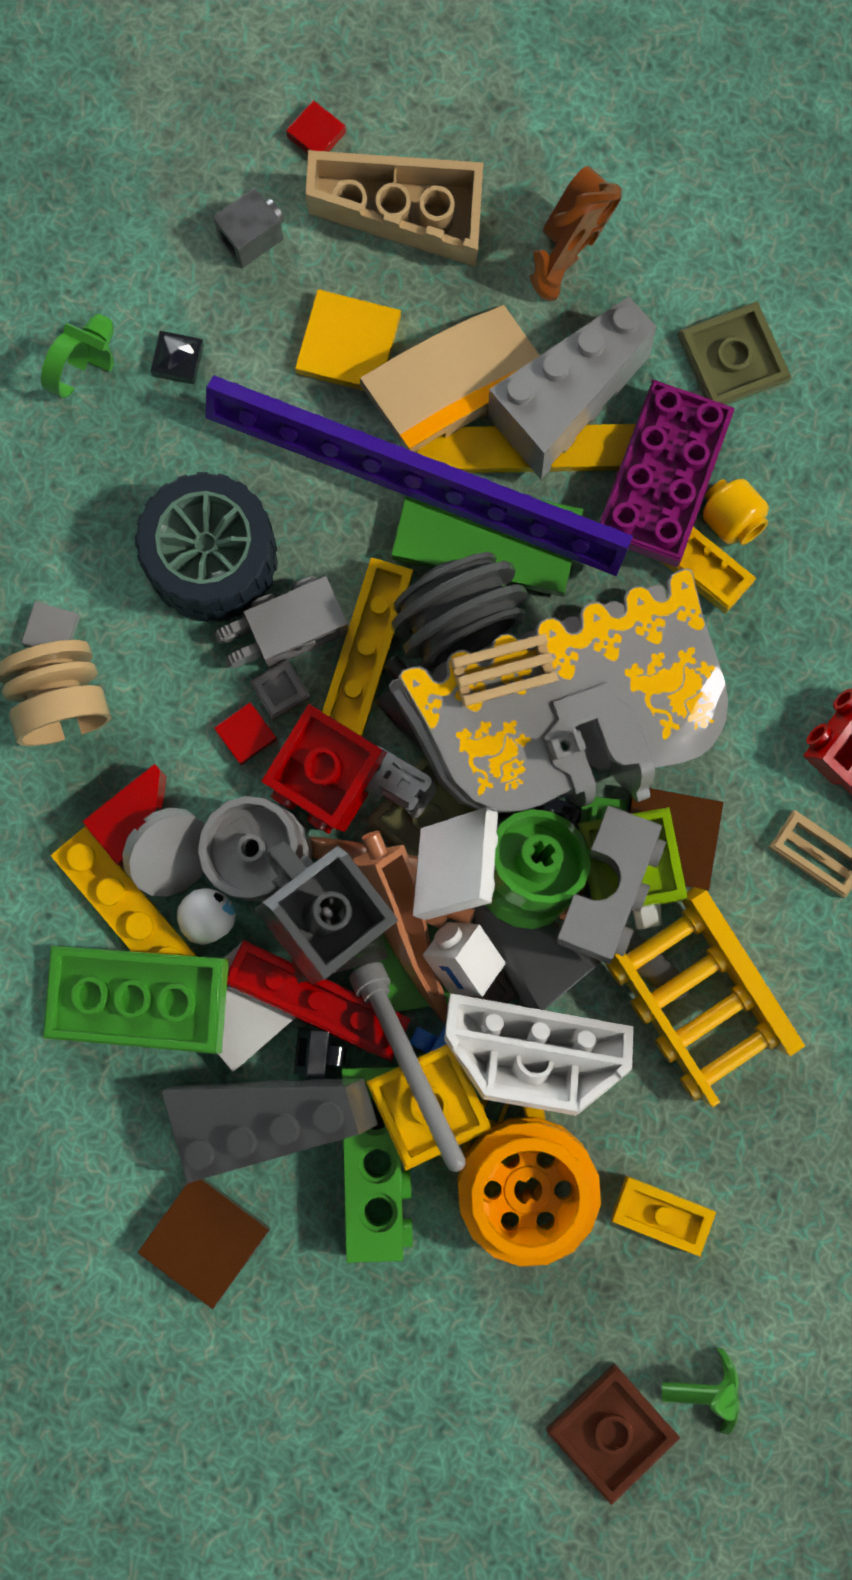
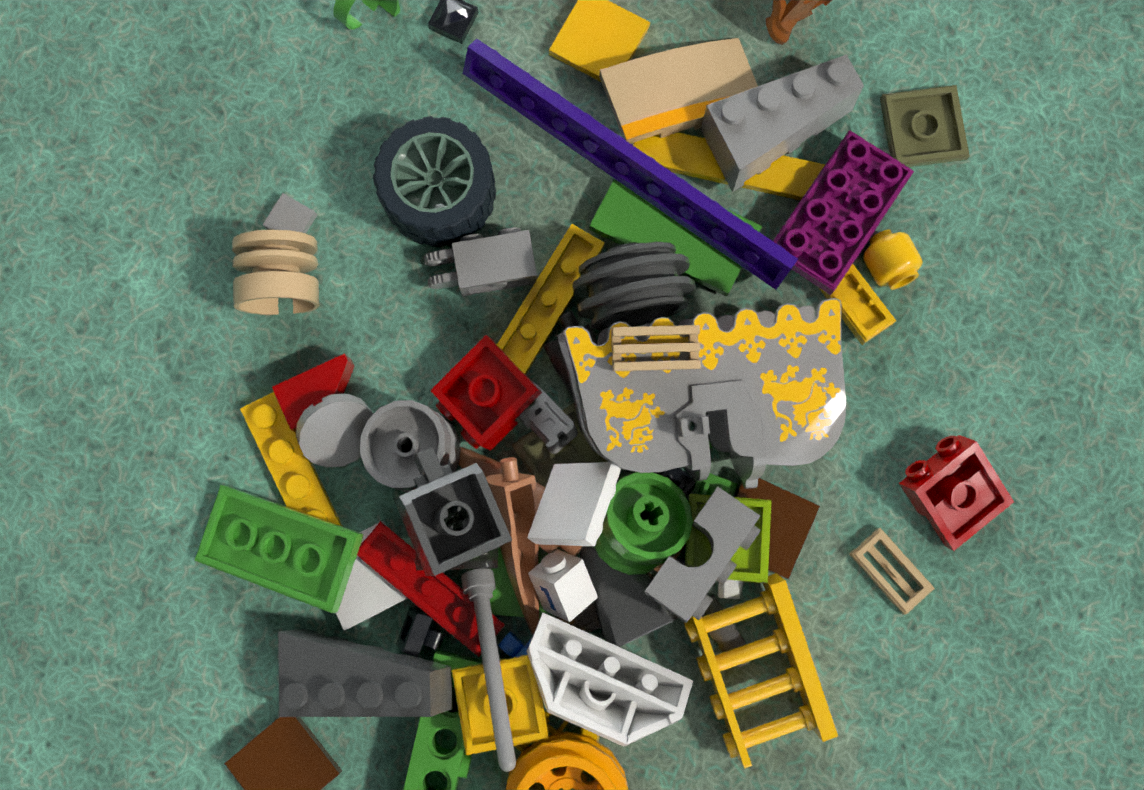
camera: 20 degrees right, 0 degrees up
(205, 916) = (355, 492): white piece -> none
(245, 733) = (429, 346): red tile -> none
(280, 689) = (467, 316): light grey tile -> none

